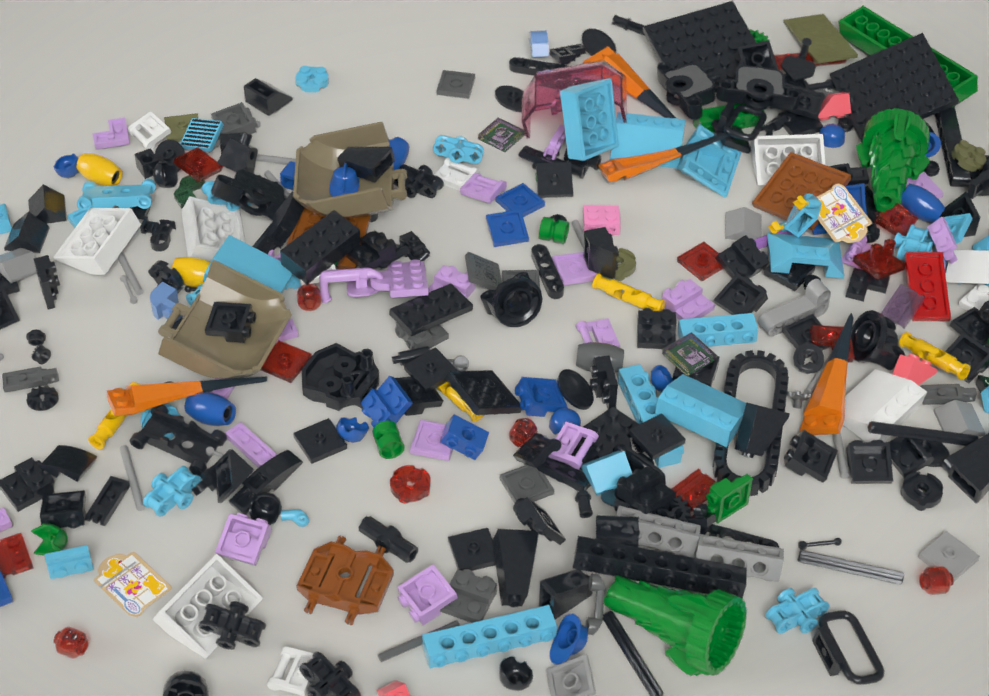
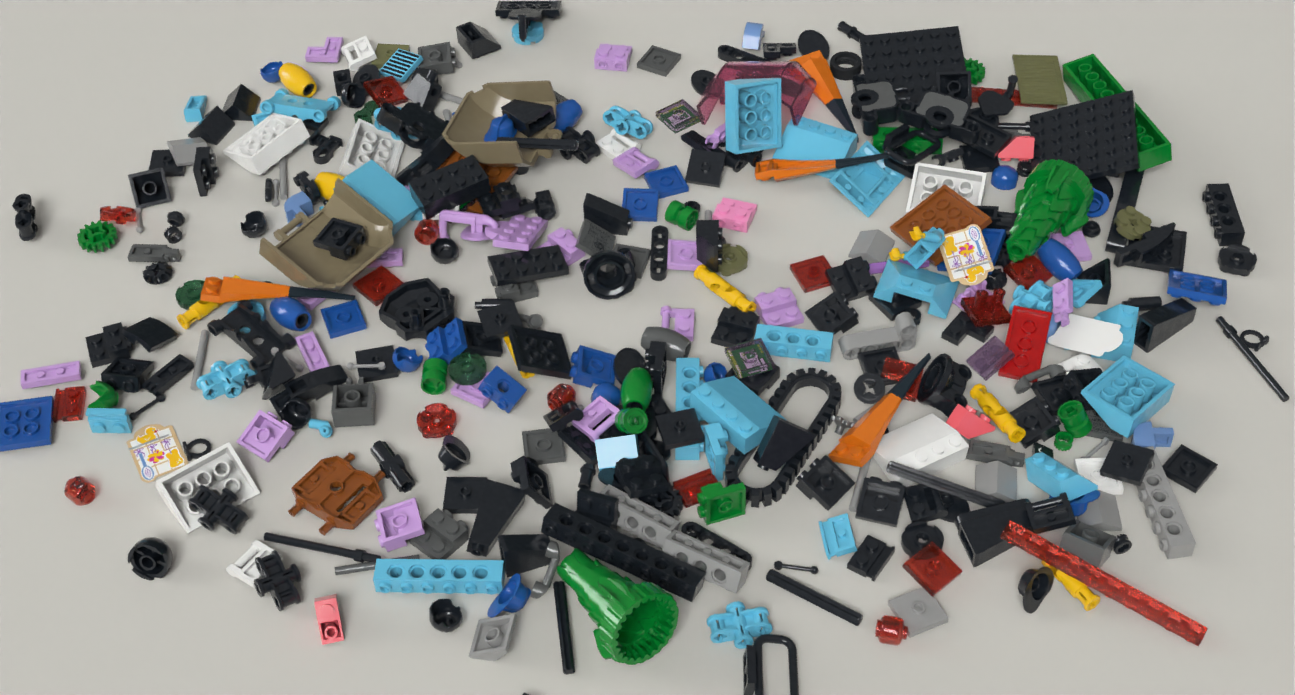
camera: 20 degrees right, 0 degrees up
(91, 411) = (189, 293): none -> clear green tile
(108, 527) = (159, 398): none -> black hinge
(121, 289) = (268, 190): none -> black piece
(125, 326) = (254, 225): none -> black hair
(170, 578) = (190, 455): none -> black piece
(263, 403) = (343, 319): none -> blue tile
(306, 57) = (527, 11): none -> black plate
(320, 485) = (353, 404): none -> dark grey hinge
(329, 441) = (381, 365): none -> light grey hinge
(336, 312) = (444, 250): none -> black hair
(398, 636) = (358, 554): none -> black bar
(399, 185) = (539, 143): none -> black axle
(409, 89) = (612, 57): none -> lavender plate
(419, 425) = (467, 369): none -> clear green tile
(444, 513) = (453, 453): none -> black piece
(484, 244) = (607, 215): none -> black slope
(599, 409) = (637, 389): none -> green piece
(610, 439) = (631, 420): none -> green wheel
(638, 49) = (845, 58): none -> black tyre
(698, 449) = (716, 448): none -> medium azure plate
(701, 516) = (688, 514): black tile -> none
(845, 504) = (837, 536): none -> medium azure plate
(883, 517) = (870, 558): none -> black plate
(946, 514) = (932, 569): none -> clear red plate
(963, 305) = (1053, 370): none -> dark grey bar

